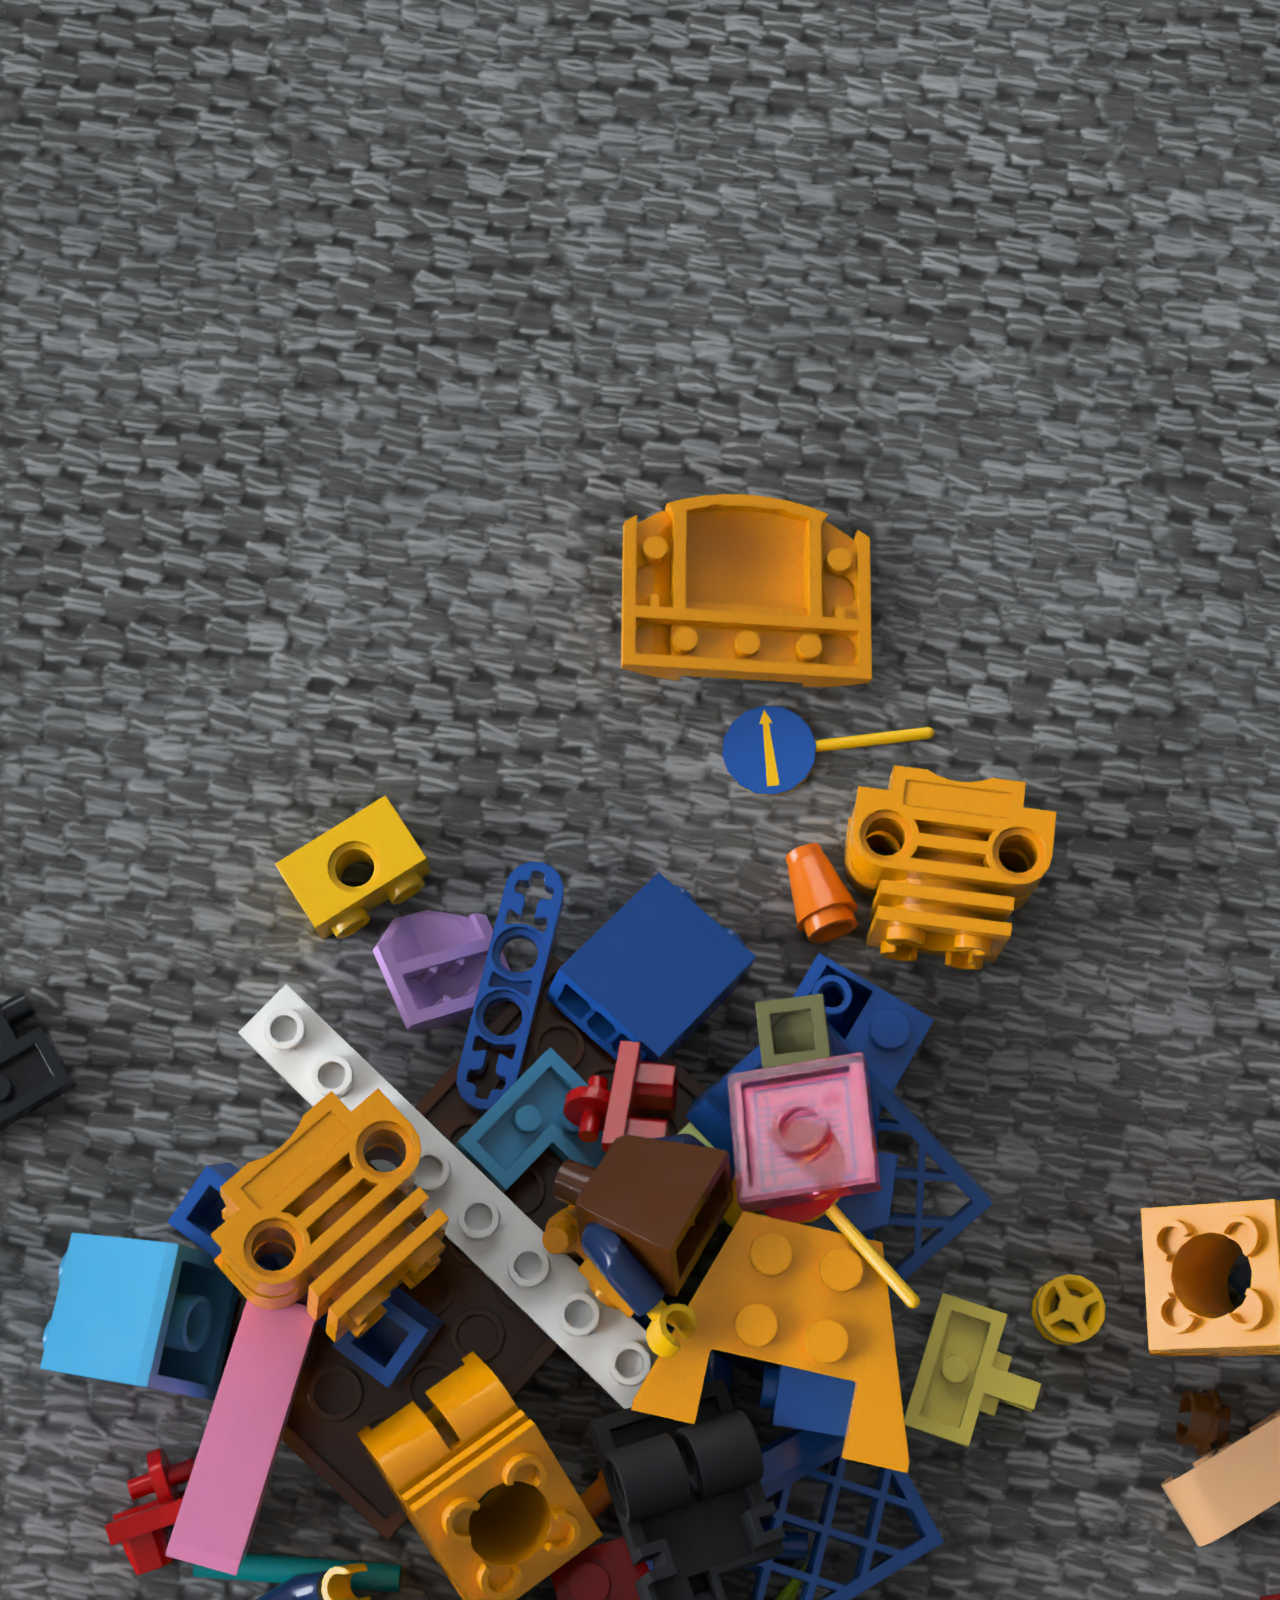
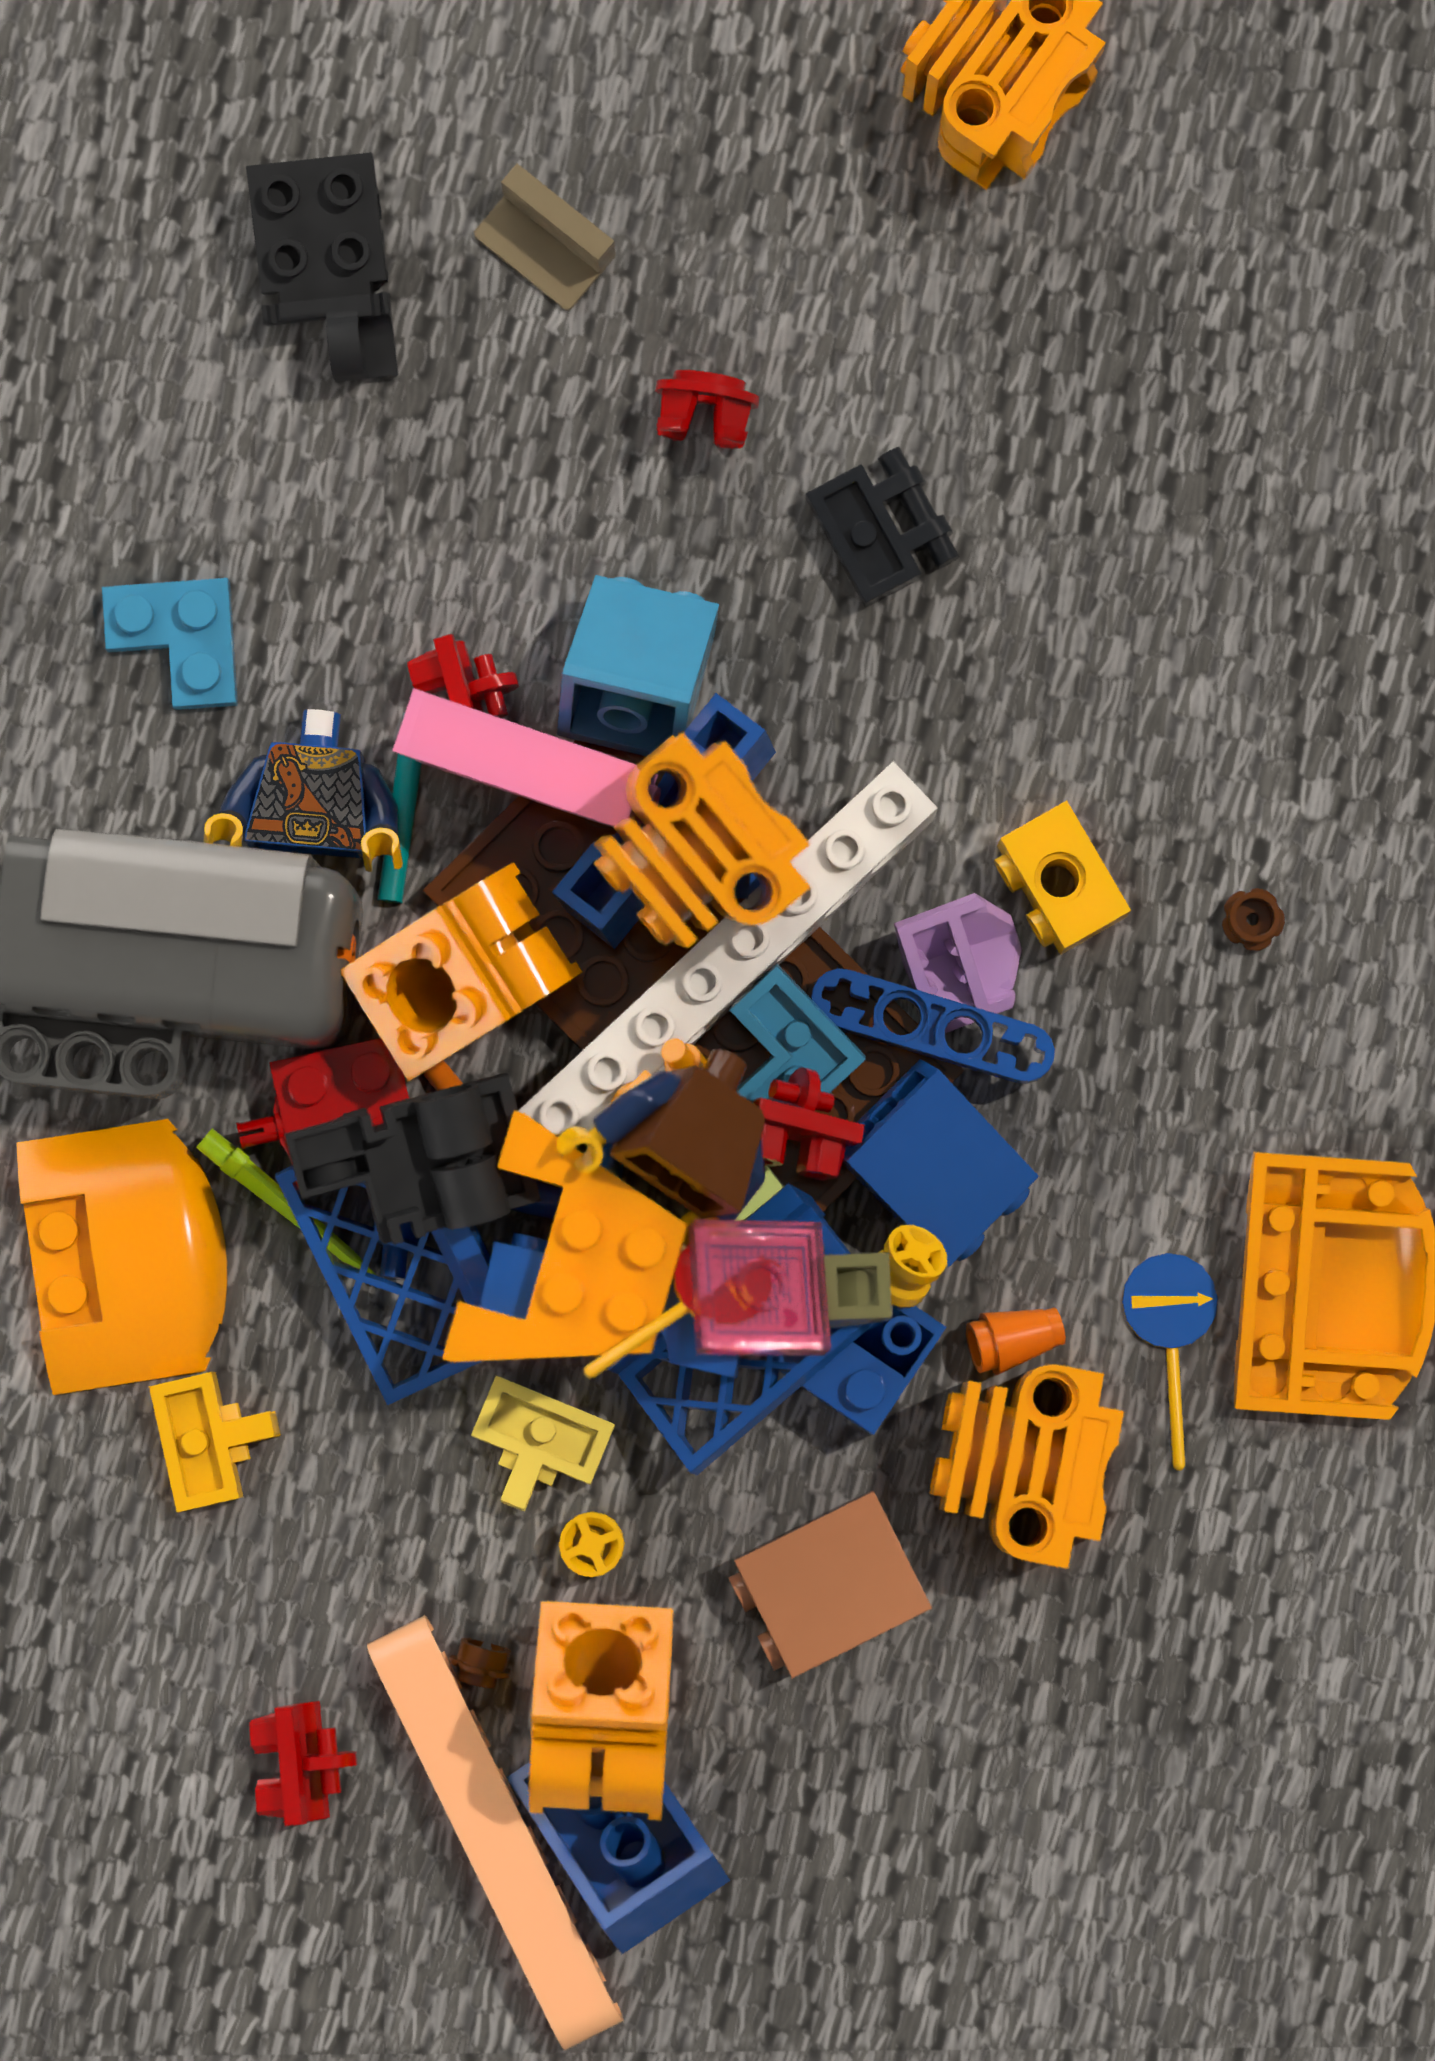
camera: 95 degrees right, 10 degrees up
(385, 672) = (1254, 902): none -> reddish brown plate
(754, 979) = (914, 1263): none -> yellow wheel
(1085, 1061) = (829, 1585): none -> nougat brick

